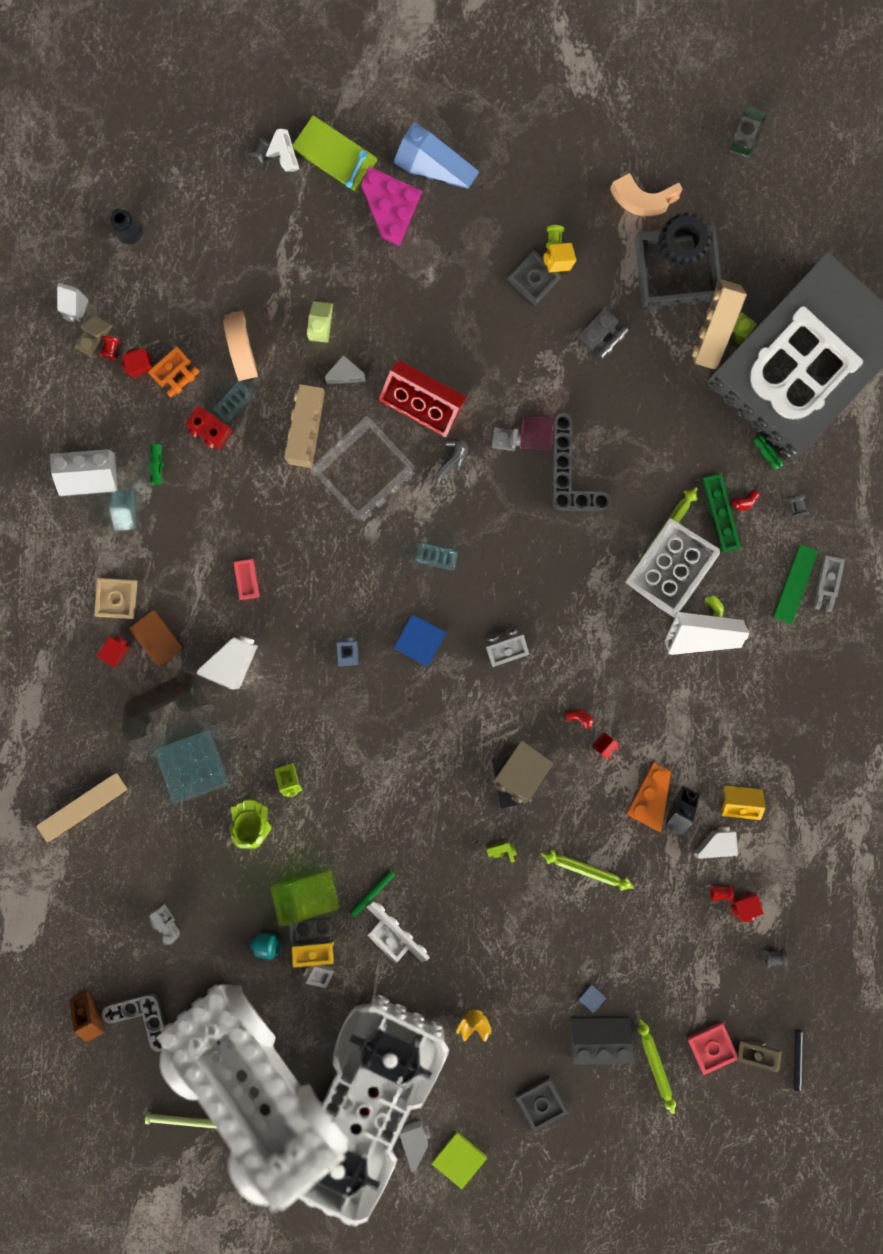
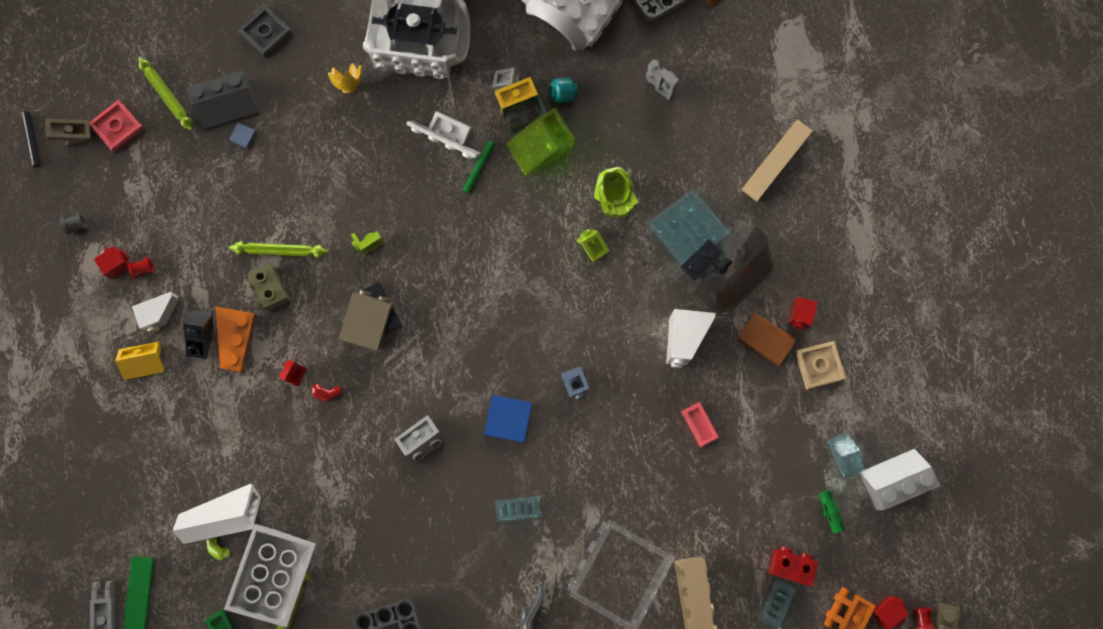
camera: 160 degrees right, 10 degrees down
(190, 731) = (702, 259): none -> black plate
(606, 835) = (268, 287): none -> olive brick

